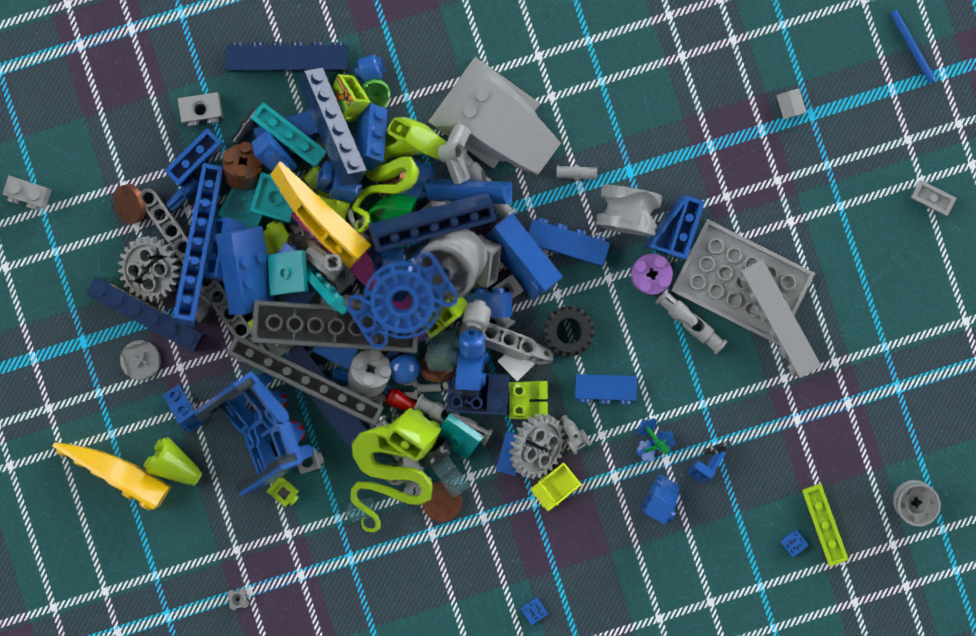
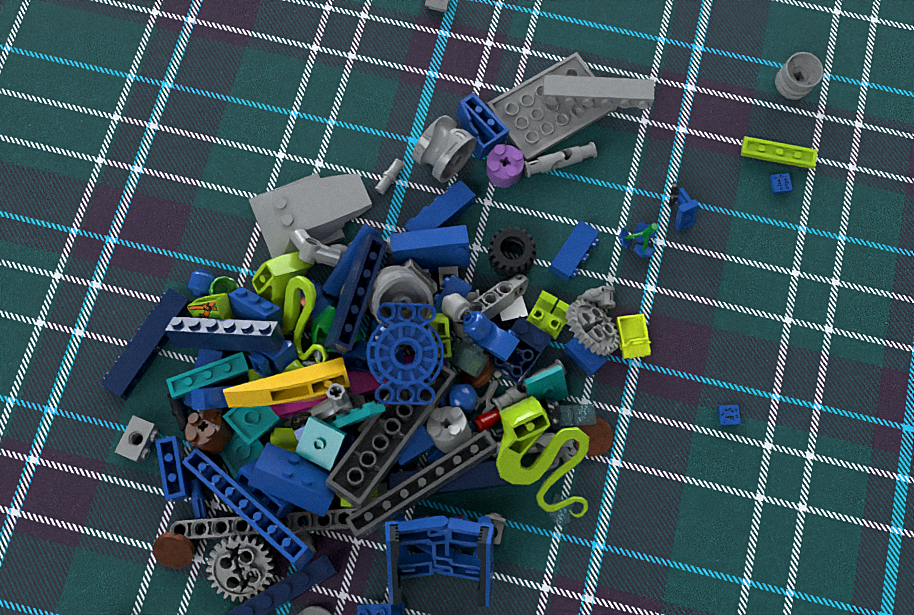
camera: 55 degrees left, 15 degrees down
(283, 492) = (507, 567): lime window -> none
(661, 500) = (695, 259): blue wedge -> none

